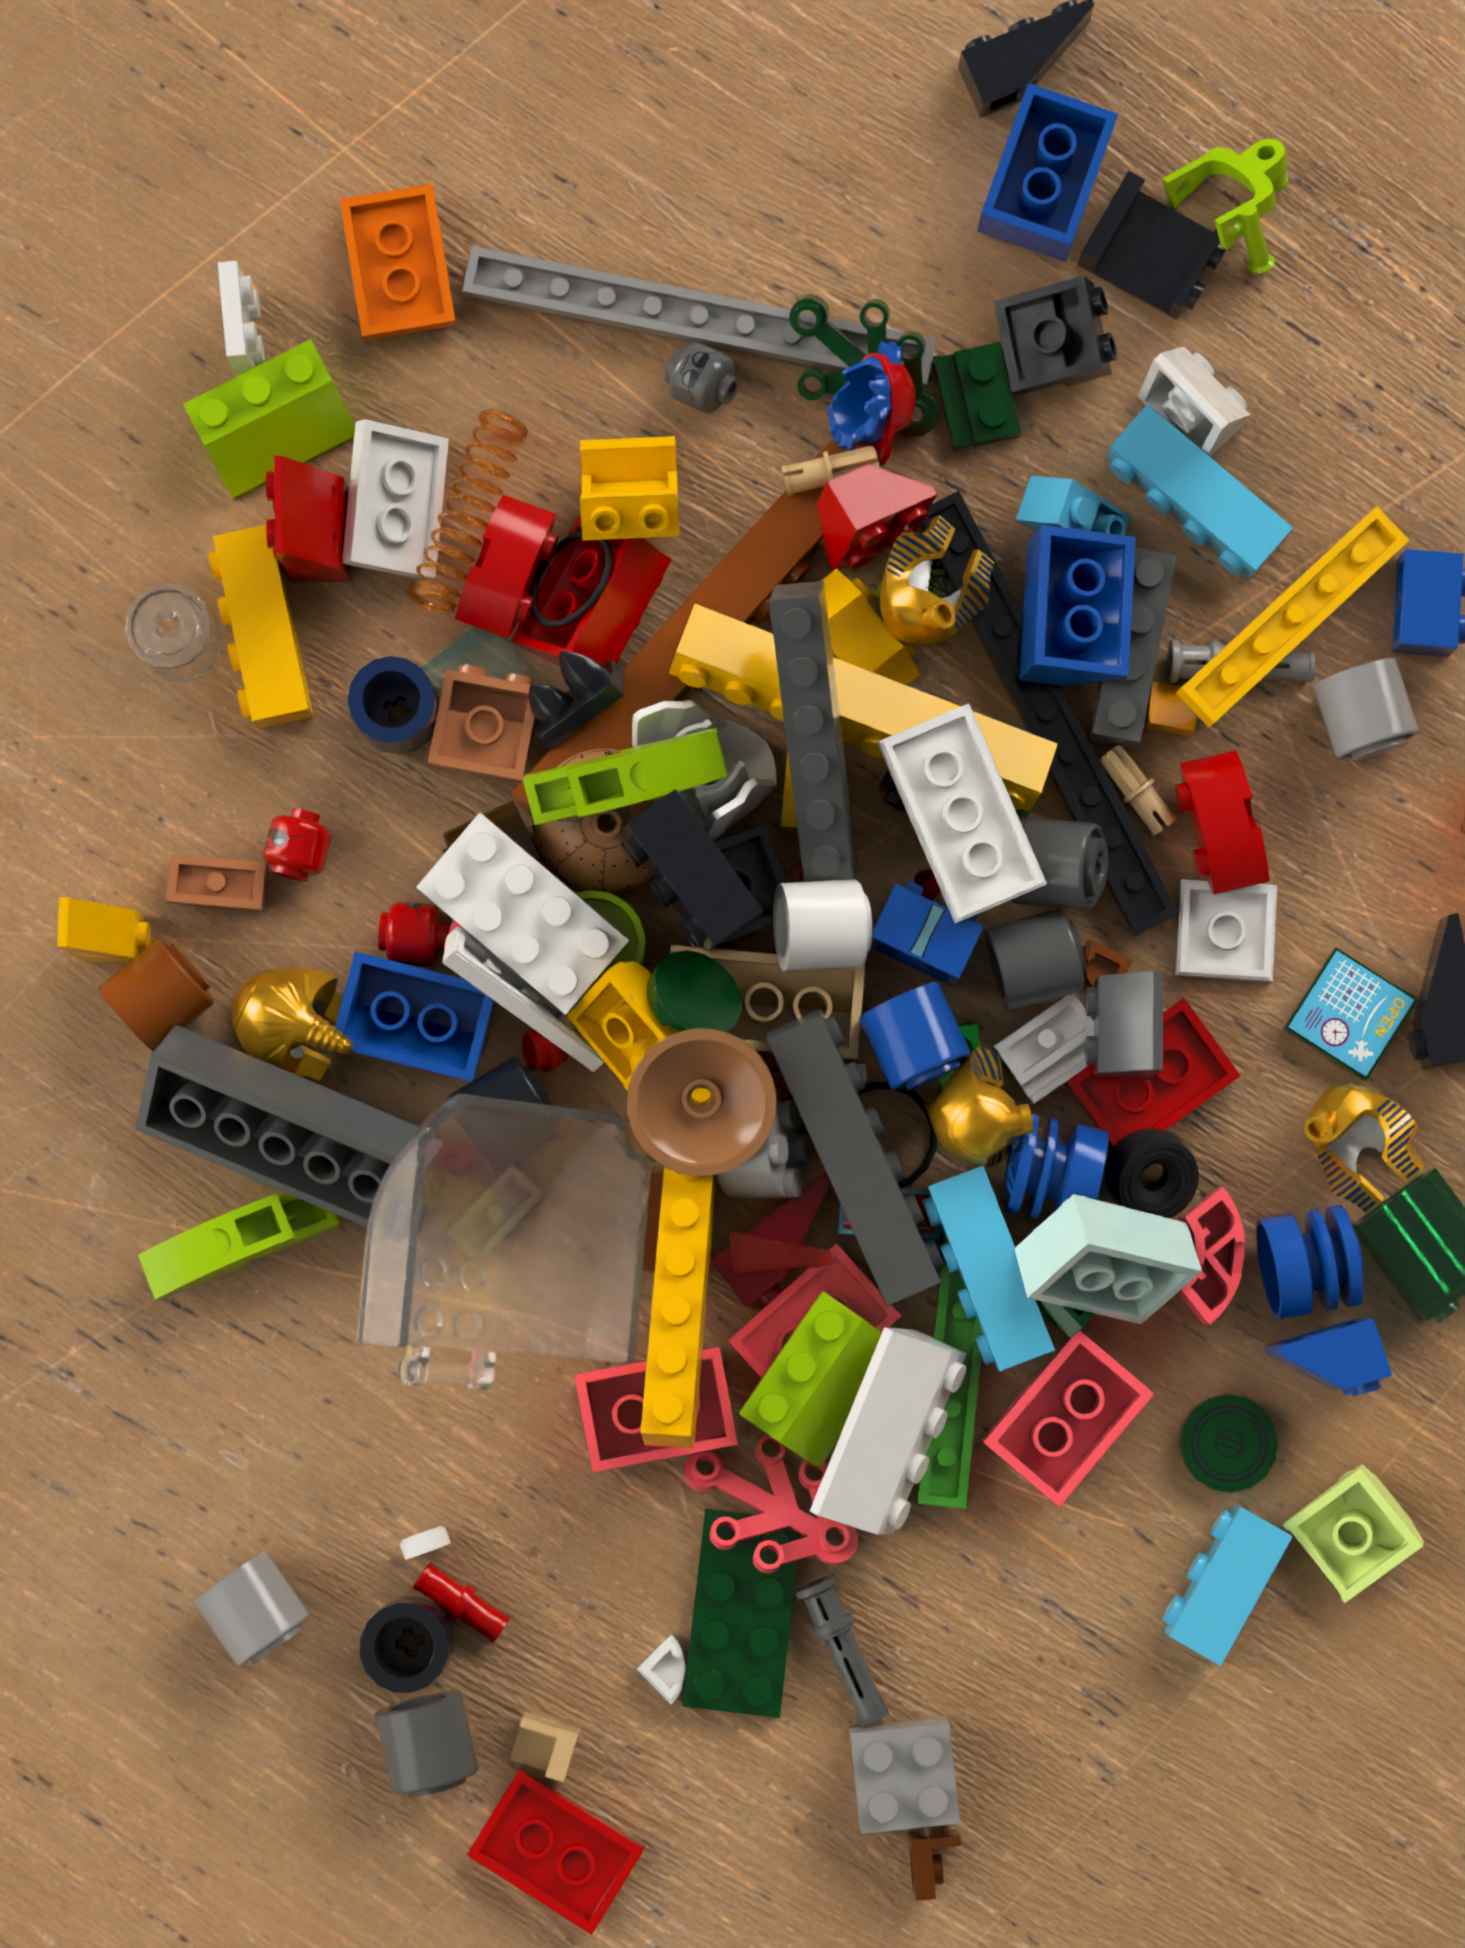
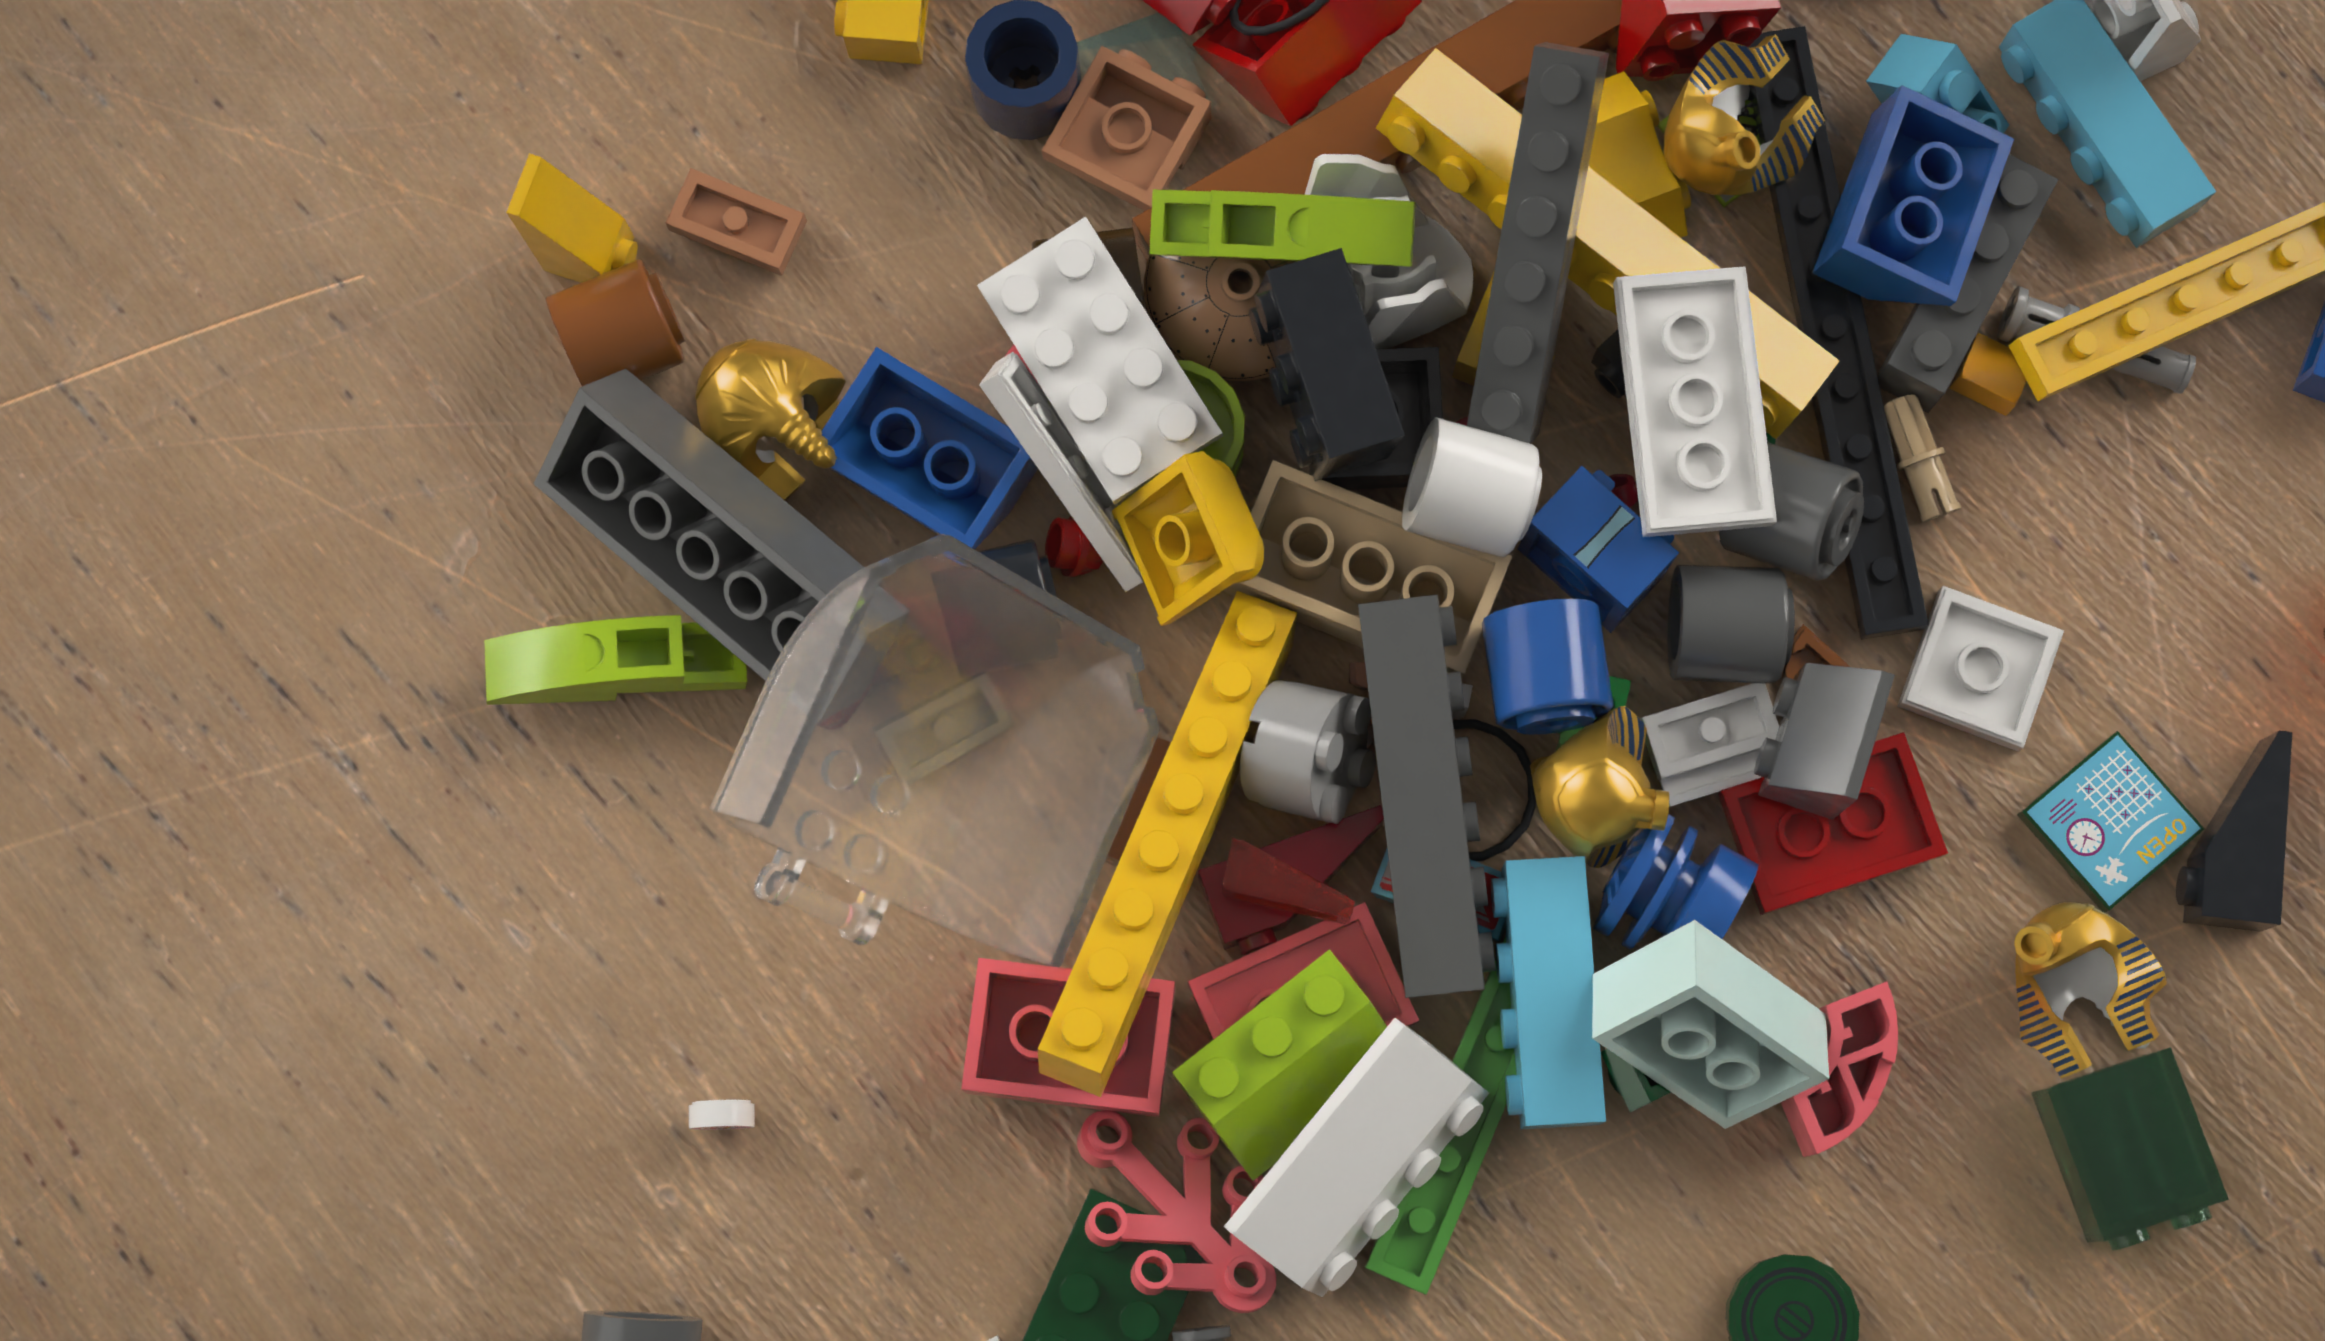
camera: 20 degrees right, 5 degrees down
(252, 1610) = (475, 1128): light grey piece -> none
(297, 845) = (849, 205): red head -> none
(392, 1665) = (620, 1228): black piece -> none
(412, 933) = (955, 352): red head -> none
(461, 1602) = (742, 1207): red pin -> none
(591, 692) = (1274, 120): black tile -> none
(694, 993) = (1282, 526): dark green tile -> none
(708, 1134) = (1240, 703): medium nougat dish -> none
(1067, 1417) = (1594, 1217): coral brick -> none
(1138, 1152) = (1792, 905): black tyre -> none
(1226, 834) = (2019, 514): red brick -> none
(1319, 1260) = (1979, 1117): blue wheel -> none
(1337, 1356) = (1971, 1250): blue slope -> none
(1366, 710) = (2245, 443): light grey piece -> none

